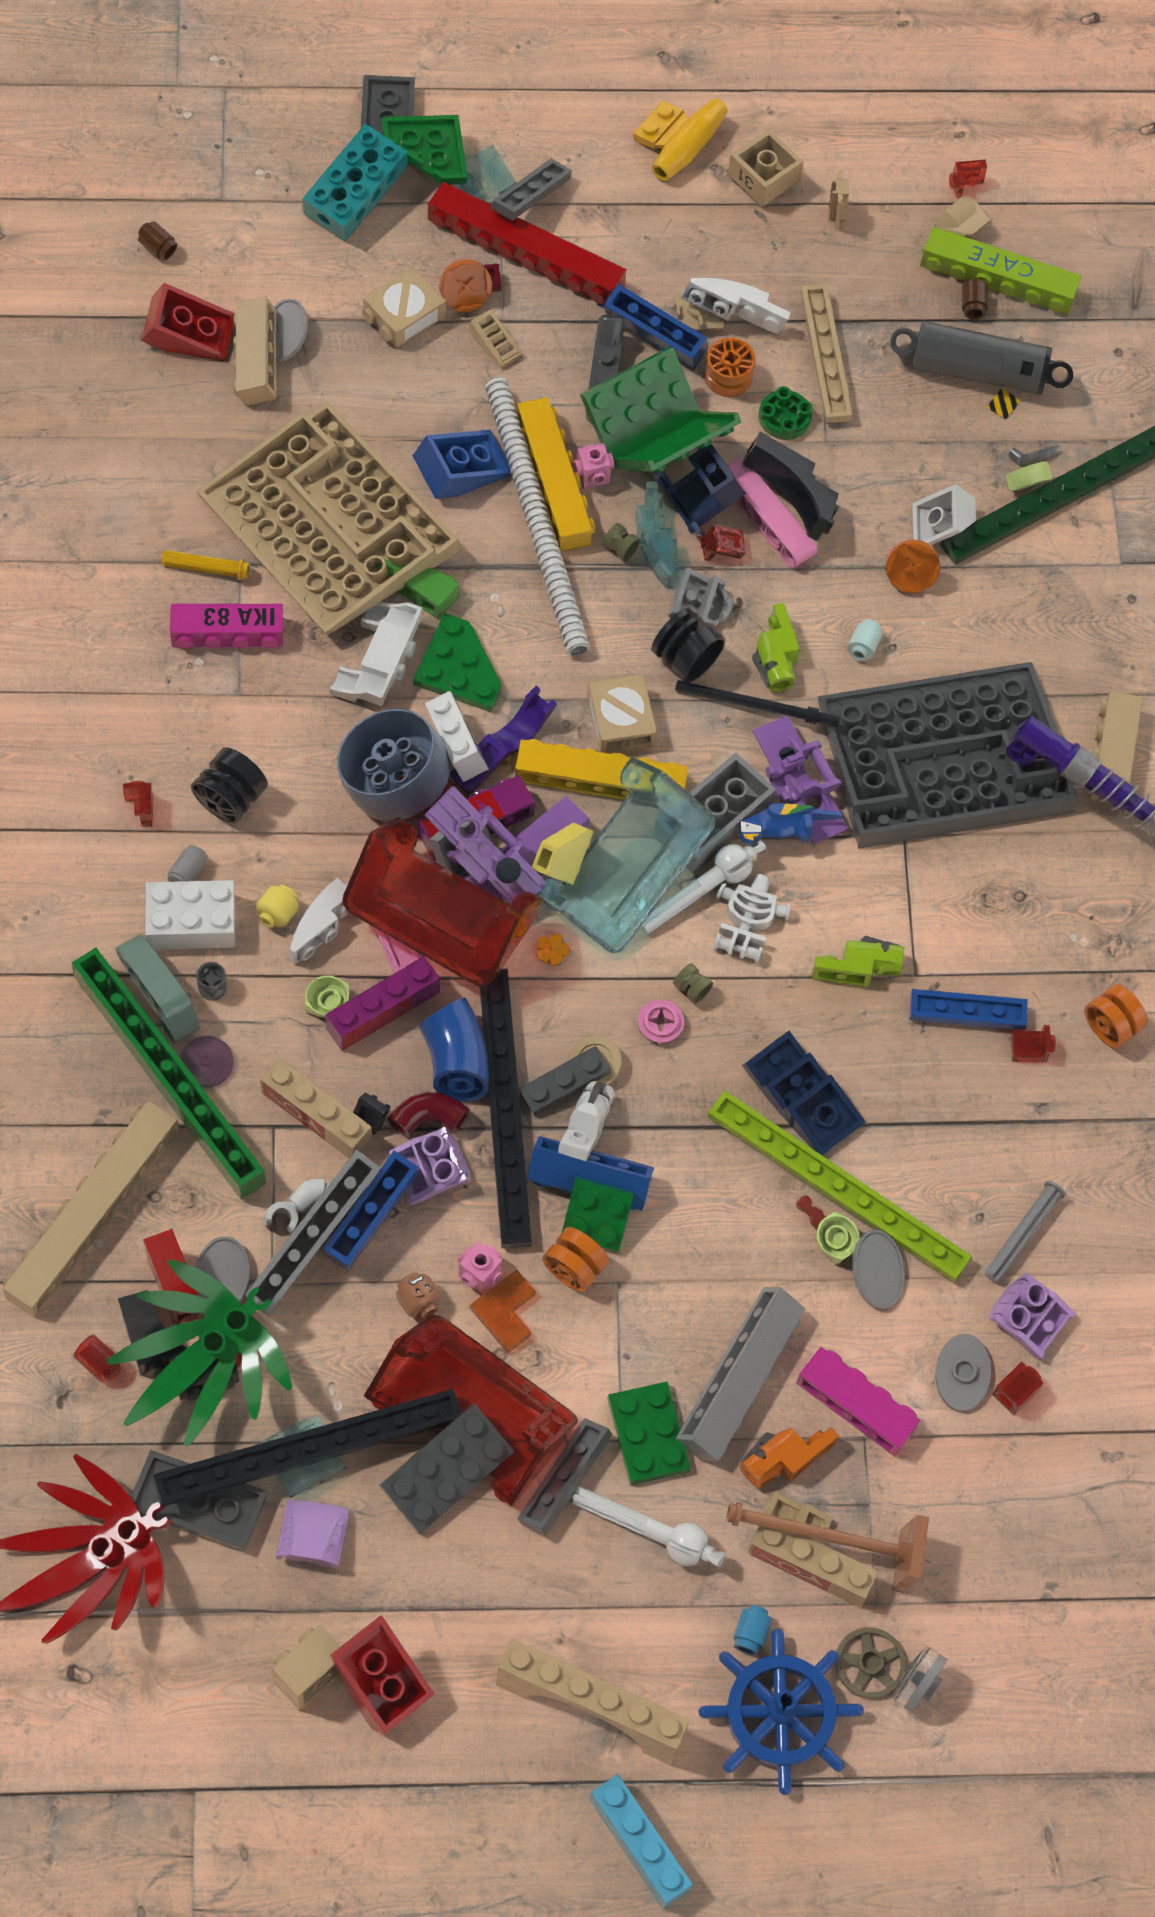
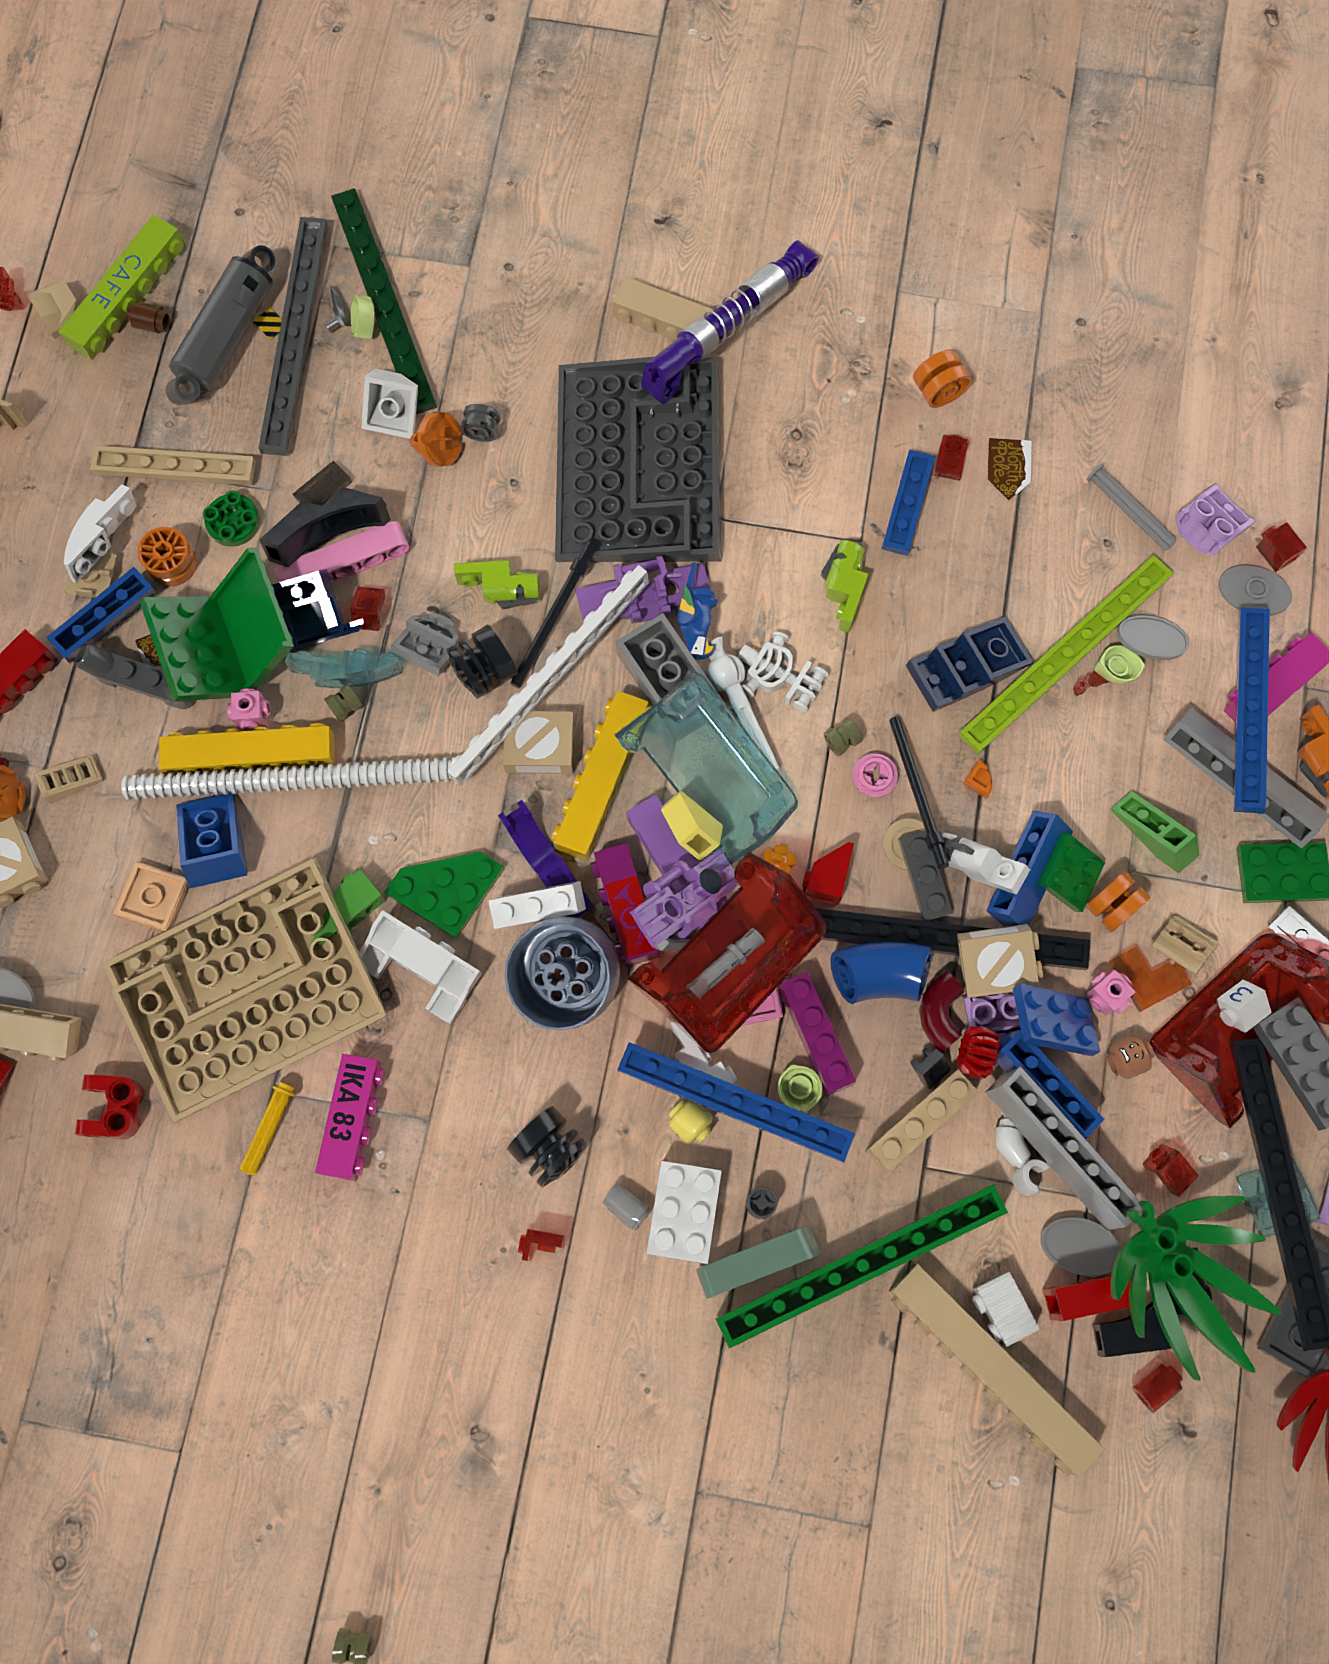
camera: 70 degrees left, 10 degrees up
(149, 1209) = (1004, 1309): none -> white brick
(202, 444) = (115, 1107): none -> red piece
(208, 1060) = (845, 1223): clear purple piece -> none
(299, 933) = (736, 1102): none -> blue plate
(312, 1349) = (1171, 1169): none -> clear red bracket
(387, 1136) = (978, 1052): none -> red gear
(398, 429) = (151, 897): none -> light nougat tile
(438, 905) = (735, 955): none -> light grey pin
(438, 1210) = (1056, 1020): none -> blue plate
(488, 1151) = (999, 960): none -> tan brick
(489, 1387) = (1244, 1006): none -> white brick
(547, 993) = (829, 875): none -> red slope
(547, 1336) = (1184, 944): none -> tan piece
(601, 1072) = (933, 838): none -> black bar
(661, 1296) = (1158, 831): none -> bright green slope
(681, 1122) = (979, 779): none -> orange tile
(686, 700) = (541, 683): none -> white plate
(811, 1356) = (1252, 711): none -> blue plate
(849, 487) = (323, 485): none -> clear smoke tile
(865, 640) = (506, 502): light aqua brick -> none
(942, 600) = (480, 422): none -> dark grey wheel
(994, 423) = (293, 337): none -> dark grey plate
(1043, 1107) = (1009, 465): none -> sticker

